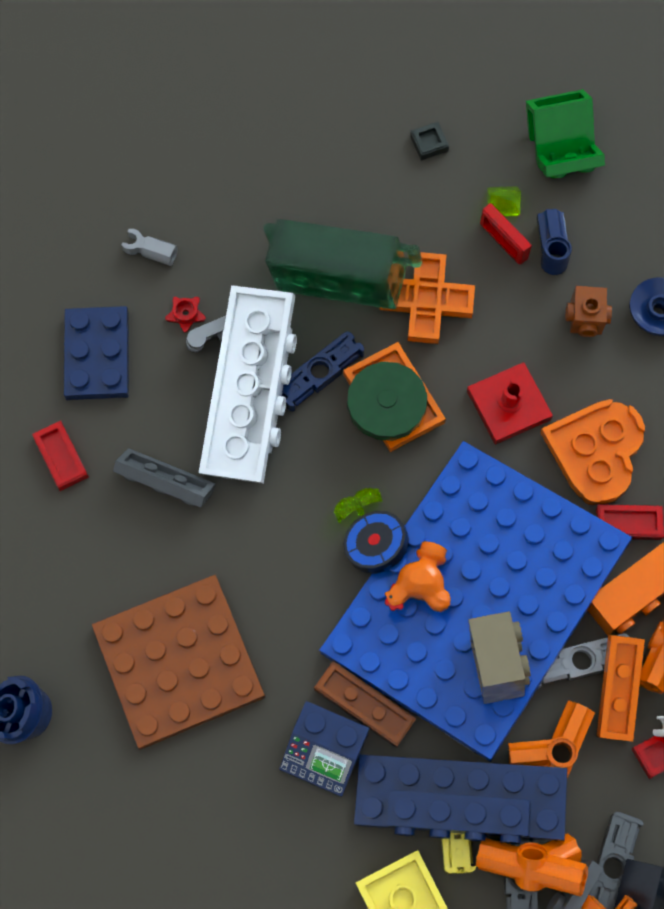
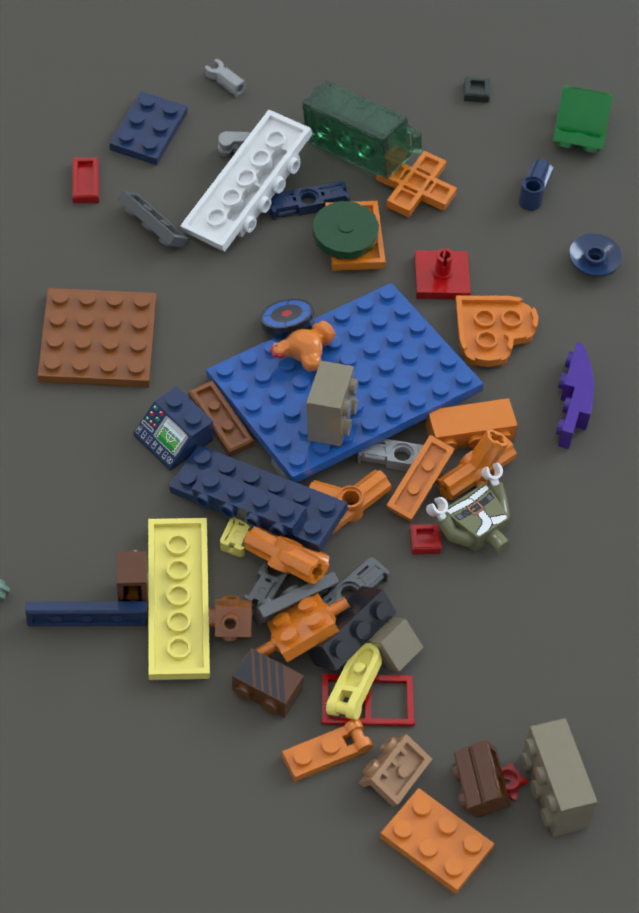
camera: 20 degrees right, 15 degrees down
(182, 305) = (228, 122): red plate -> none
(351, 504) = (288, 290): clear neon green piece -> none
(505, 199) = (512, 147): clear neon green slope -> none
(505, 234) = (500, 165): red tile -> none
(588, 311) = (535, 235): dark orange brick -> none
(637, 521) = (496, 385): red tile -> none

